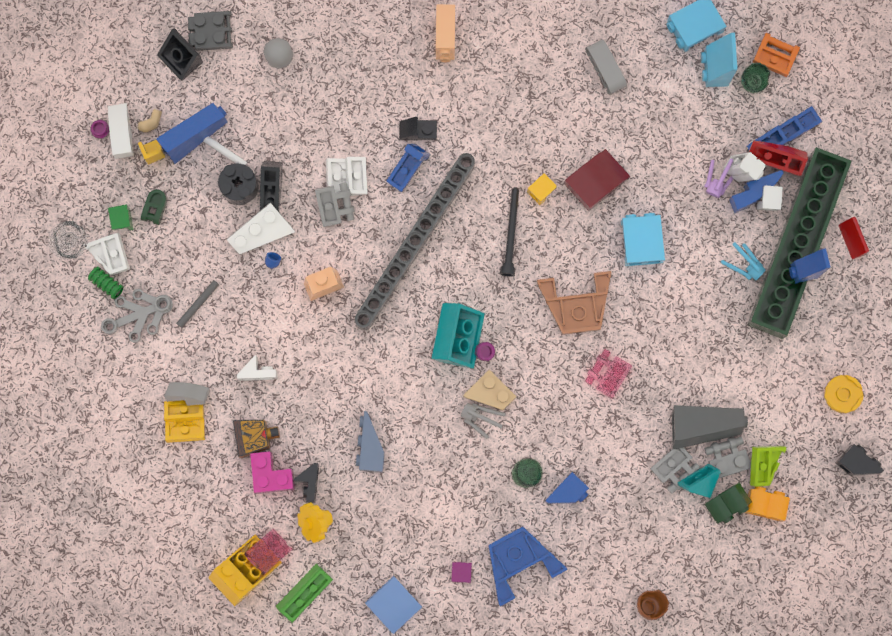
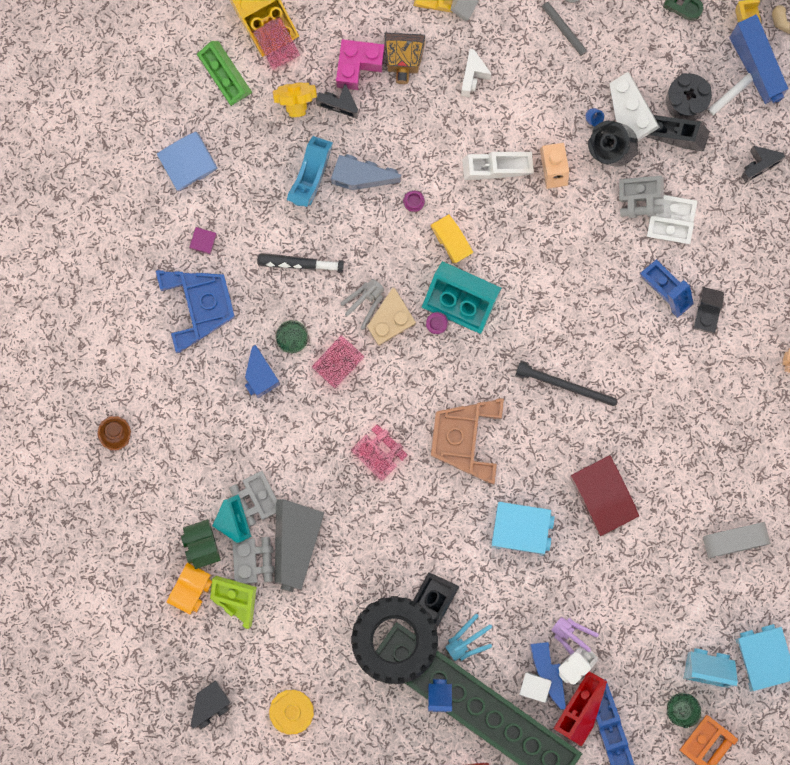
camera: 105 degrees right, 0 degrees up
(279, 109) = (765, 160): none -> black slope
(284, 237) = (603, 137): none -> black brick
(334, 332) = (497, 165): none -> white slope
(380, 491) = (311, 172): none -> dark azure arch
(382, 396) = (413, 201): none -> magenta plate
(408, 356) = (452, 238): none -> yellow slope
(416, 232) = (576, 264): dark grey beam -> none
(462, 491) = (284, 261): none -> black piece
(540, 427) = (338, 362): none -> clear pink plate
(541, 188) = (607, 429): yellow panel -> none
(720, 297) = (436, 596): none -> black slope
(792, 302) = (426, 640): none -> black tyre

